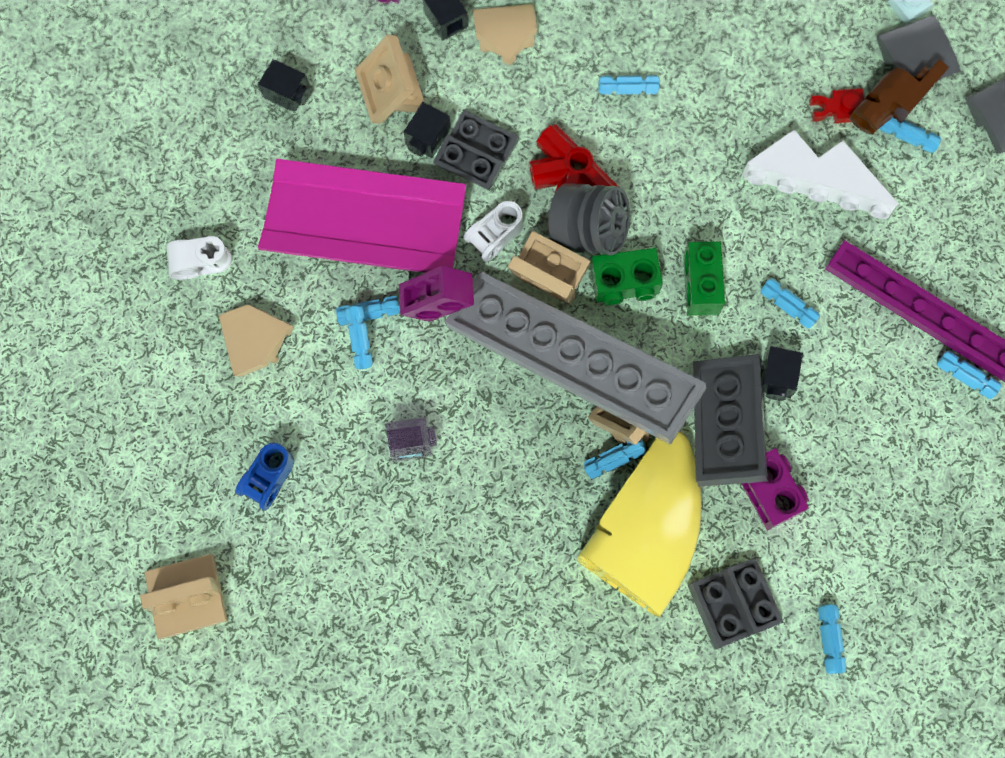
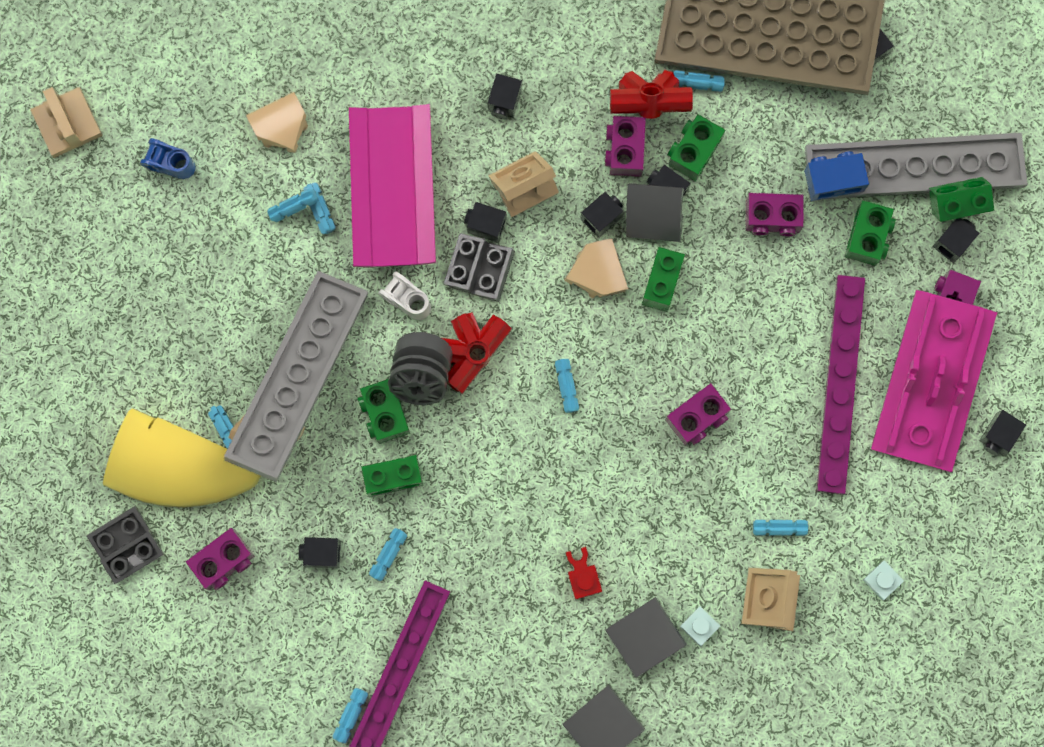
camera: 80 degrees right, 5 degrees up
(193, 257) = (338, 61): white piece -> none
(410, 439) = (214, 263): clear purple brick -> none
(436, 294) = (333, 257): magenta brick -> none
(550, 267) = (370, 343): tan bracket -> none
(730, 422) = (268, 513): dark grey plate -> none
(832, 177) = (509, 573): white slope -> none
(832, 639) = (108, 626): medium azure axle -> none
(895, 97) = (592, 618): reddish brown plate -> none
(912, 134) = (567, 639): medium azure axle -> none

